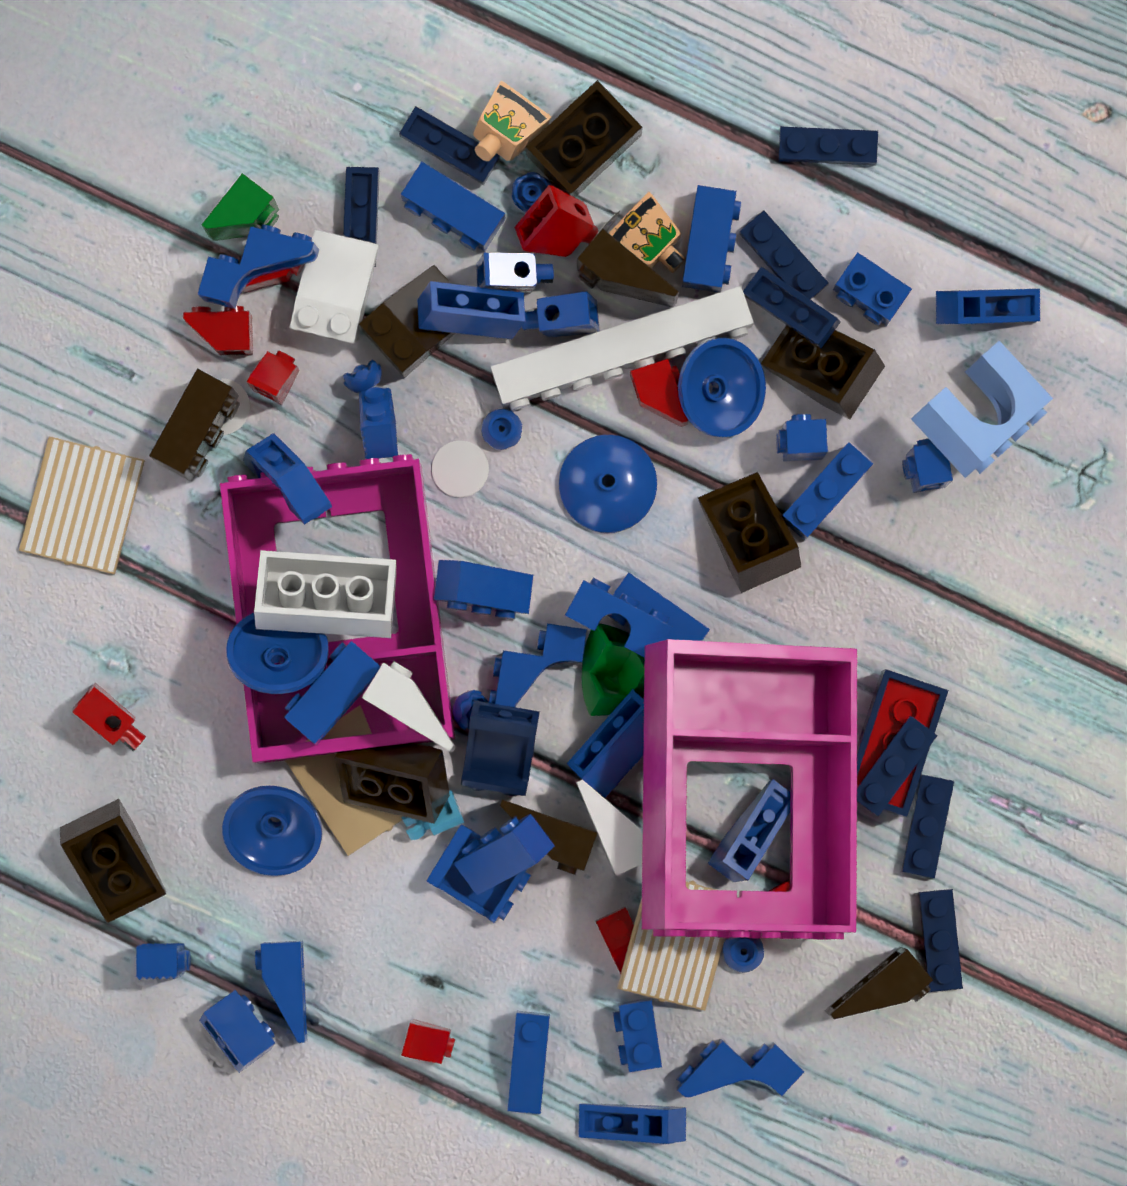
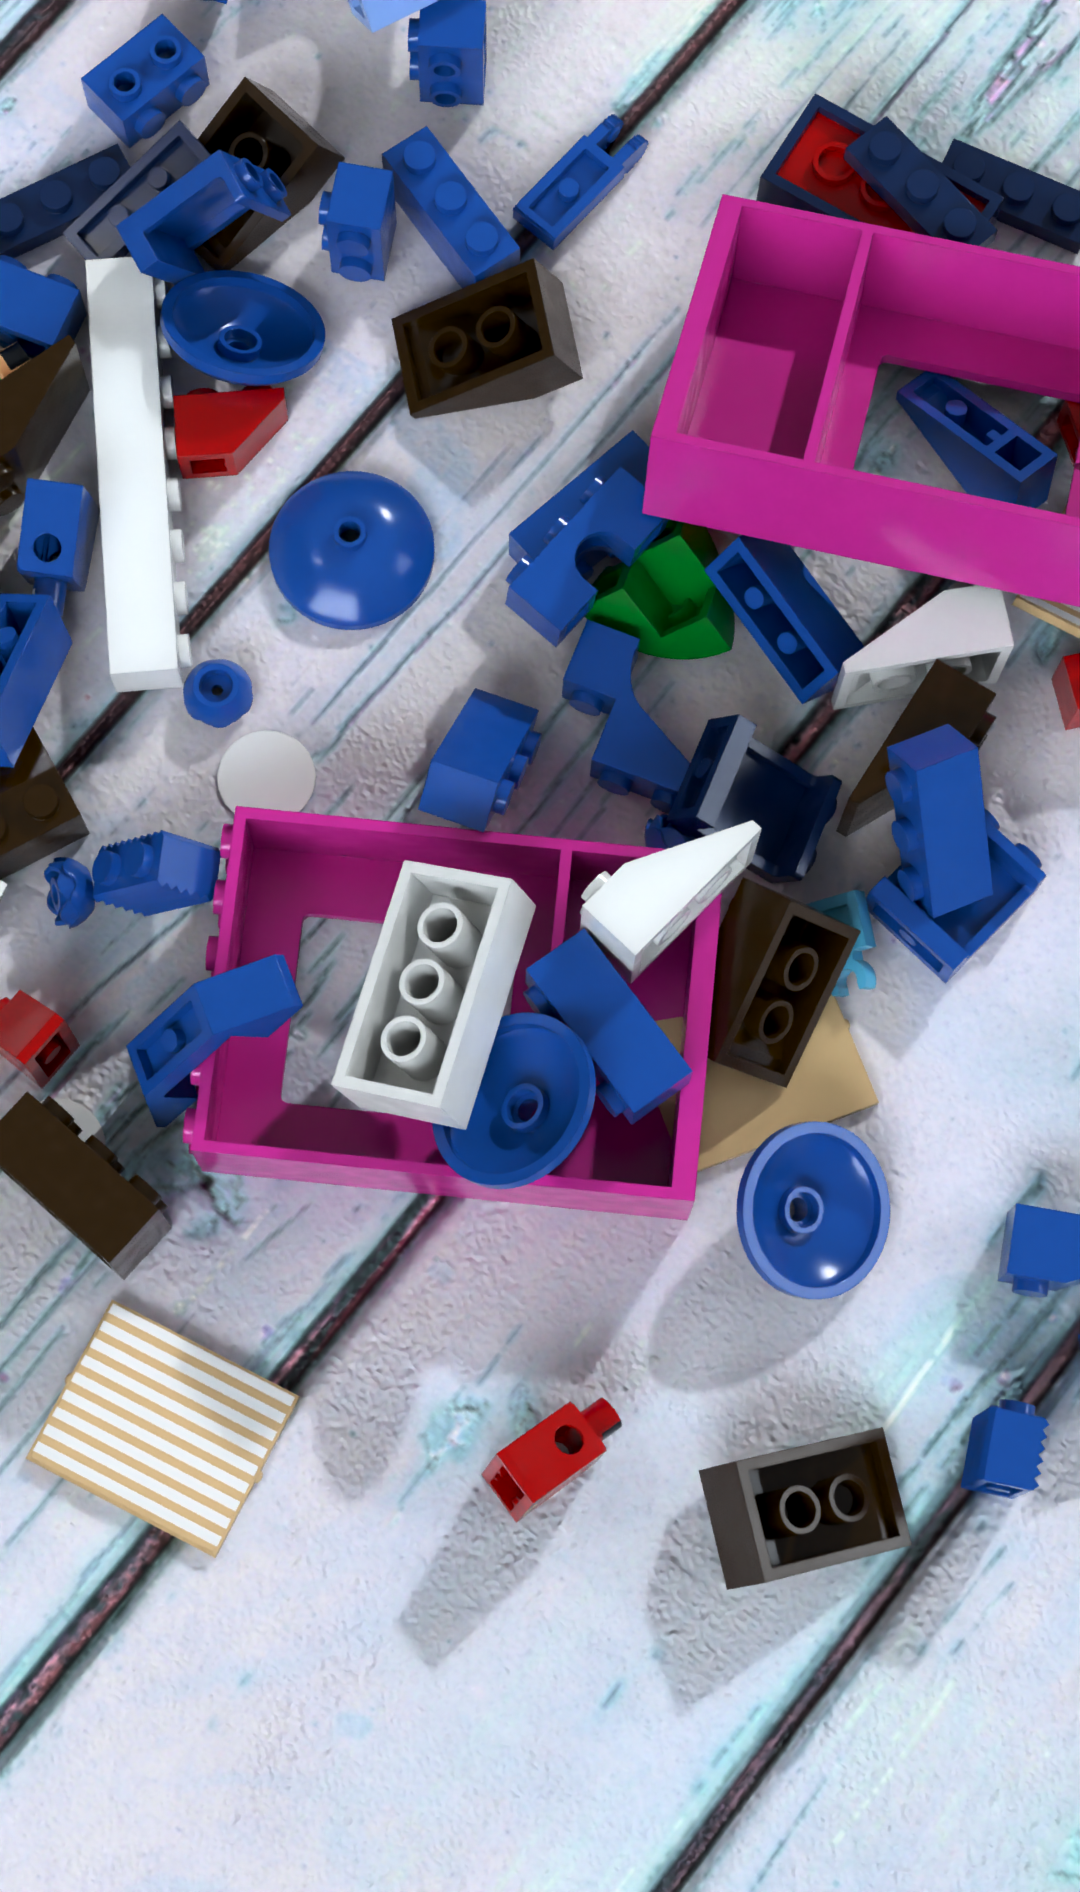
camera: 80 degrees left, 10 degrees down
(761, 332) = (194, 210): none -> blue panel
(869, 561) = (577, 183): none -> blue hinge

